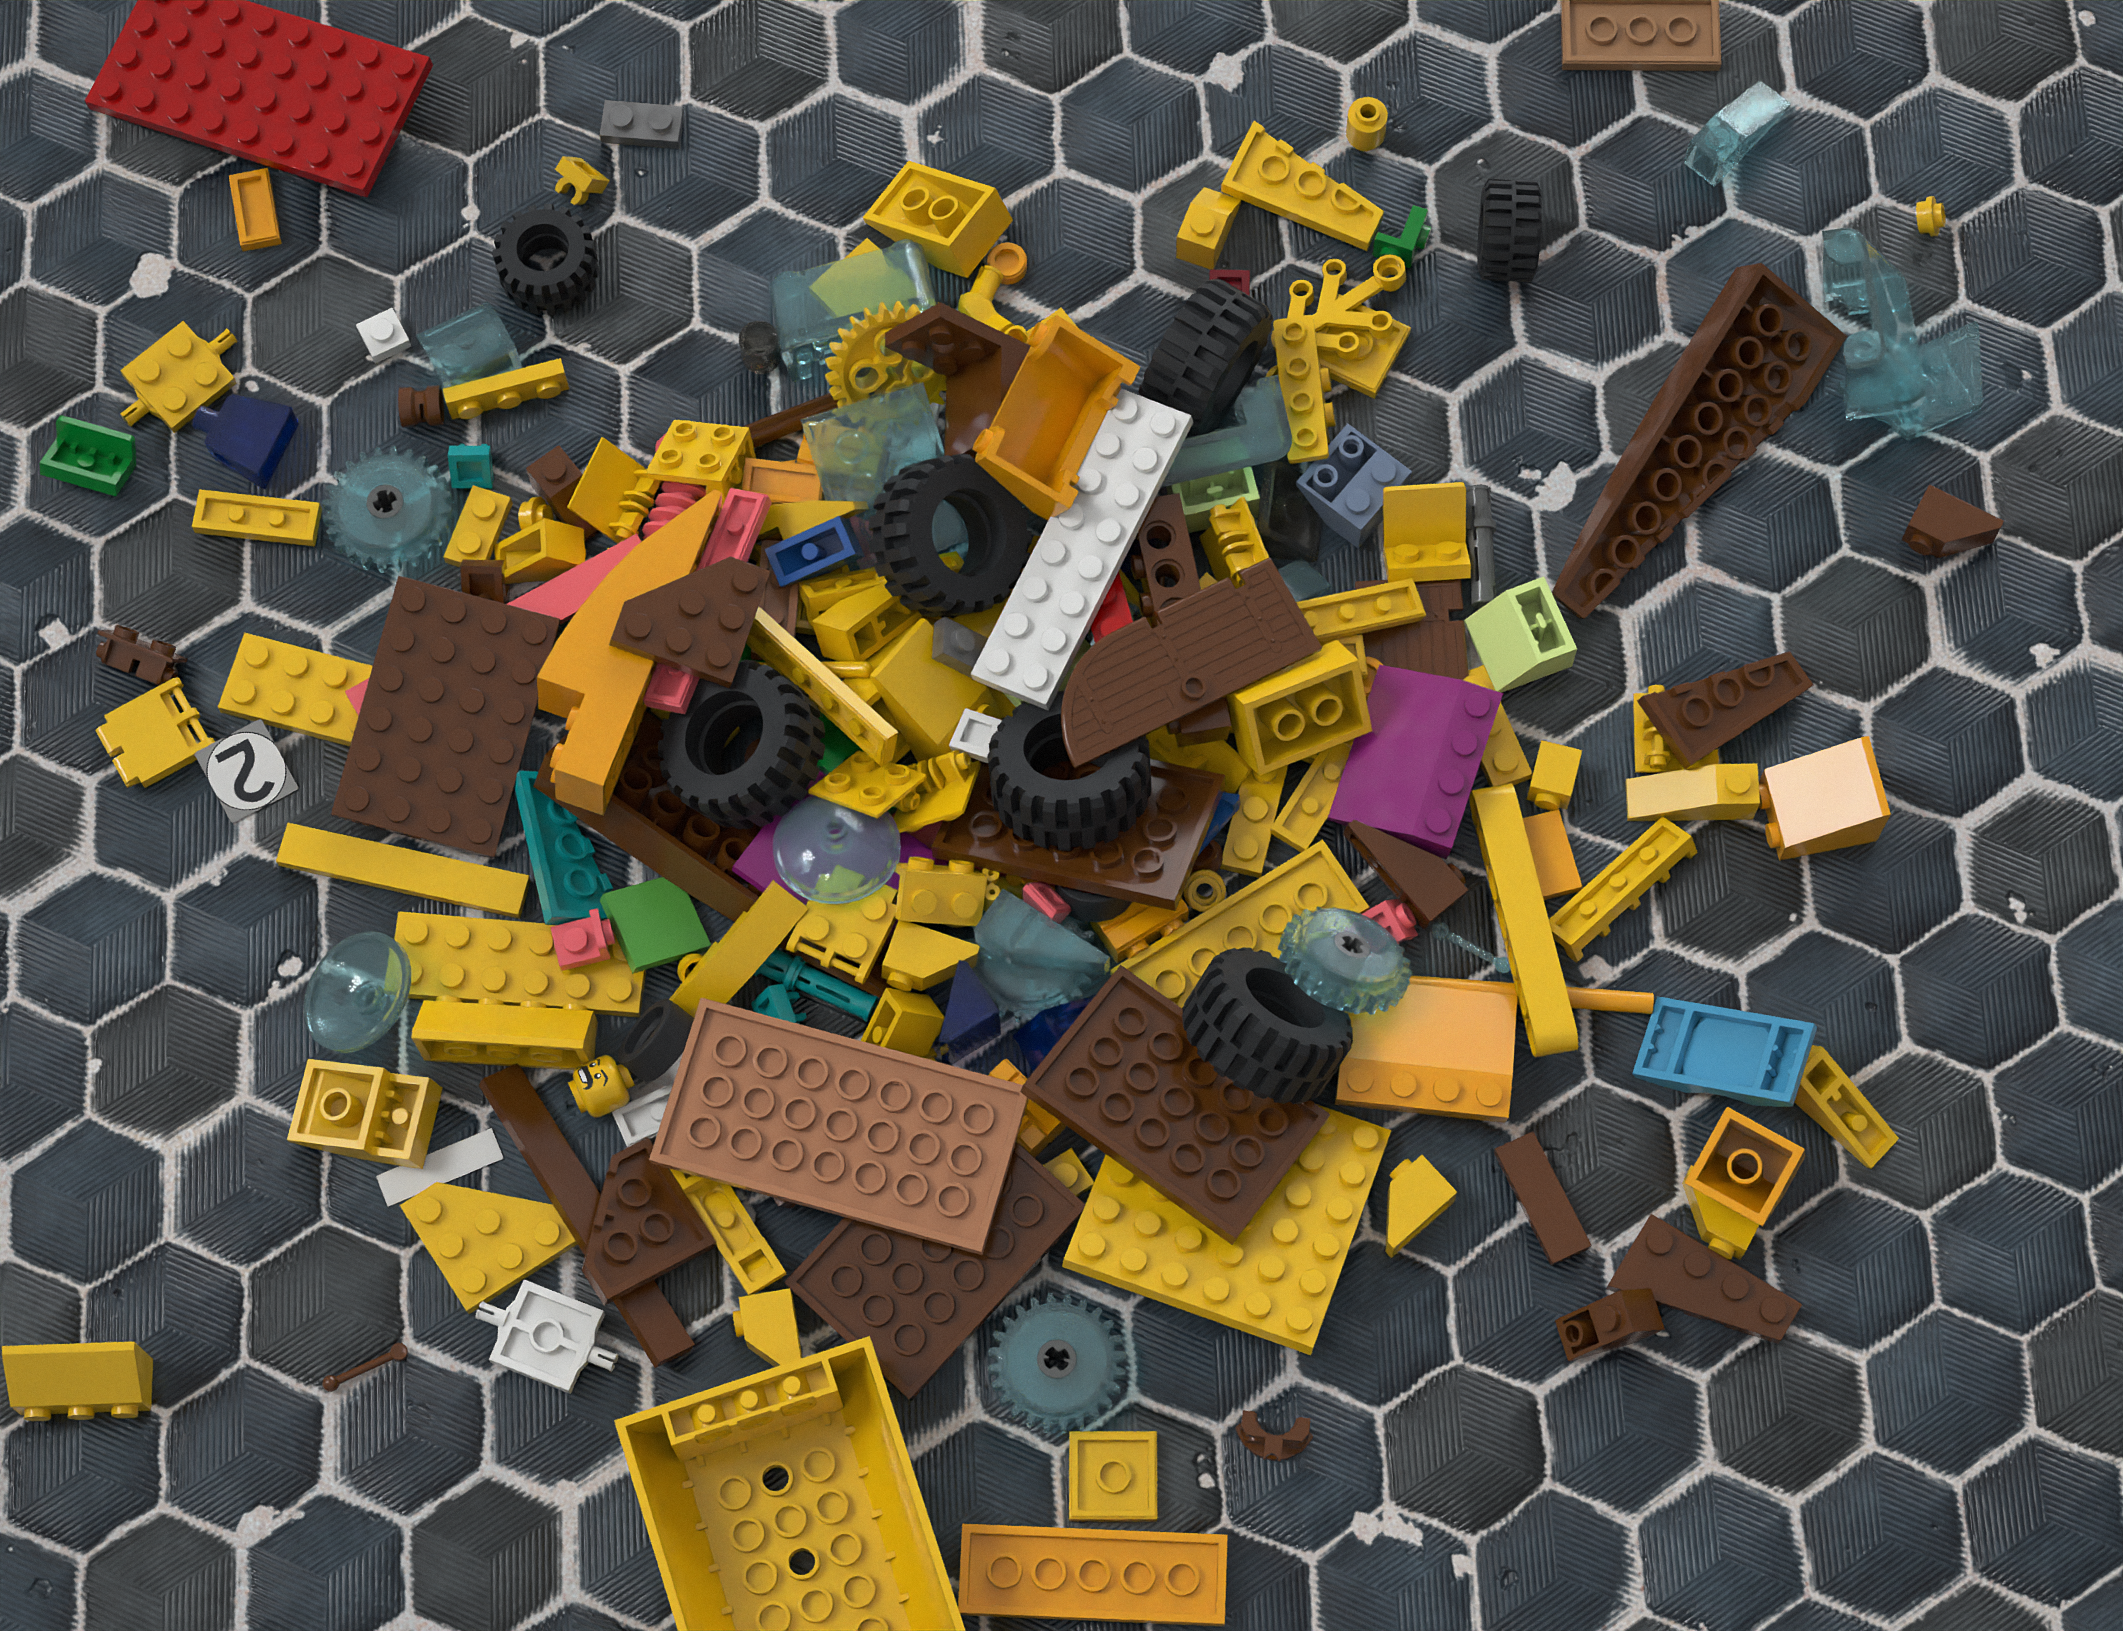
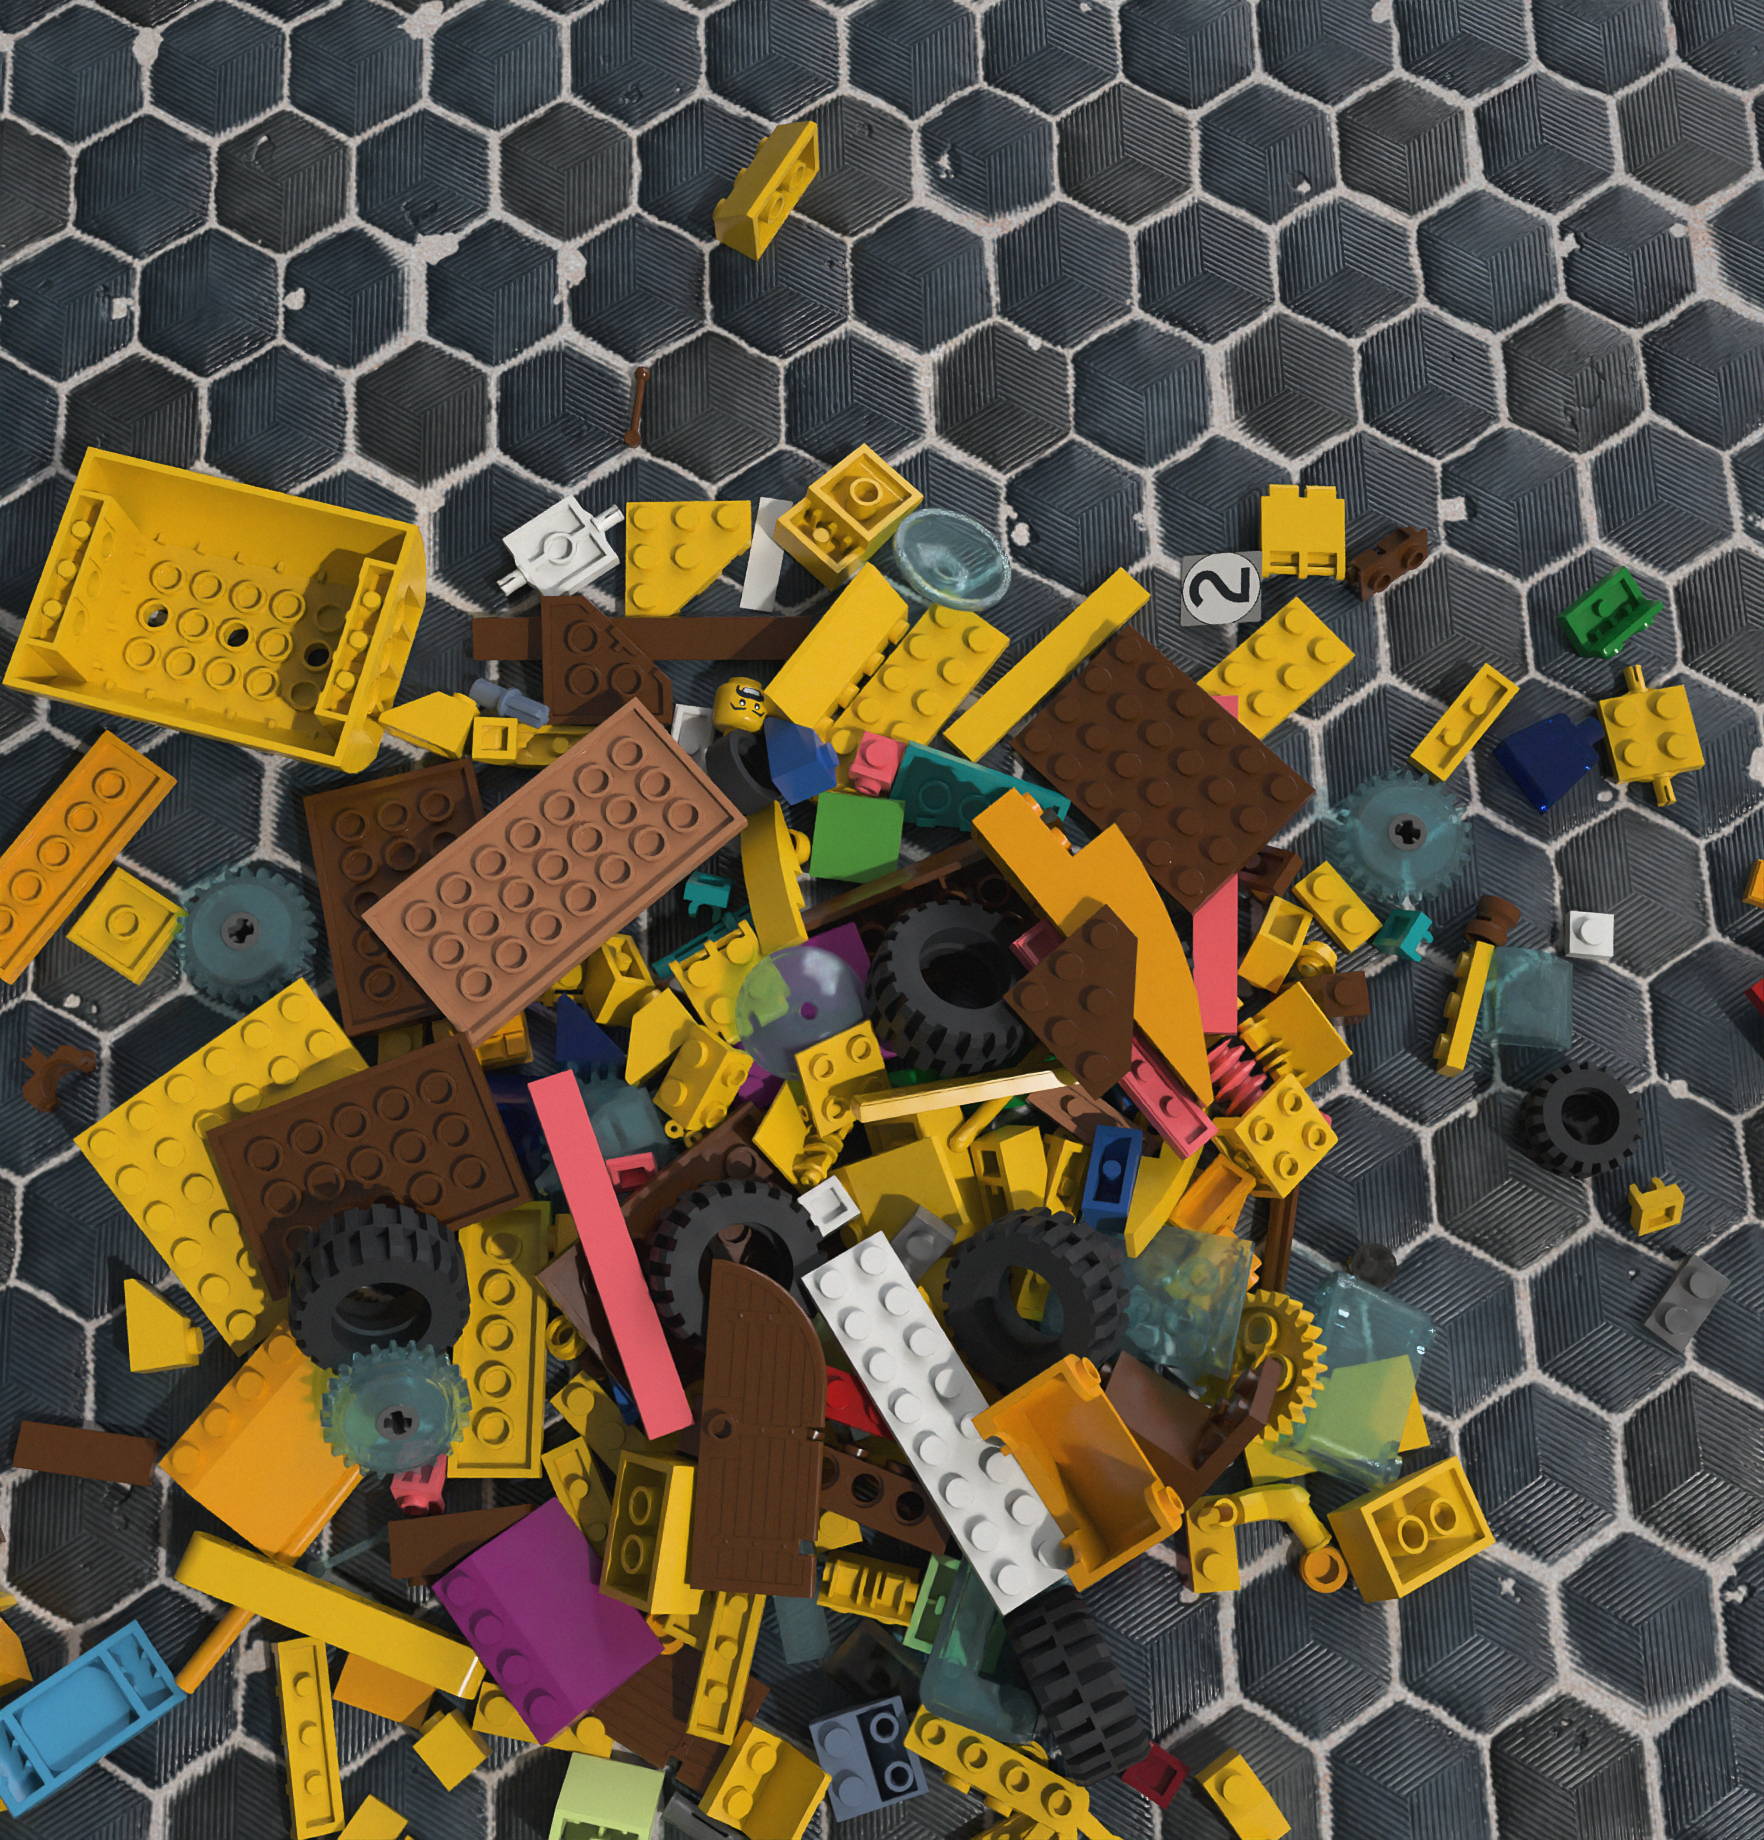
camera: 120 degrees right, 5 degrees up
(618, 999) = (799, 760): none -> blue slope
(716, 1280) = (509, 703): none -> sand blue axle
(1119, 861) = (610, 1255): none -> coral tile

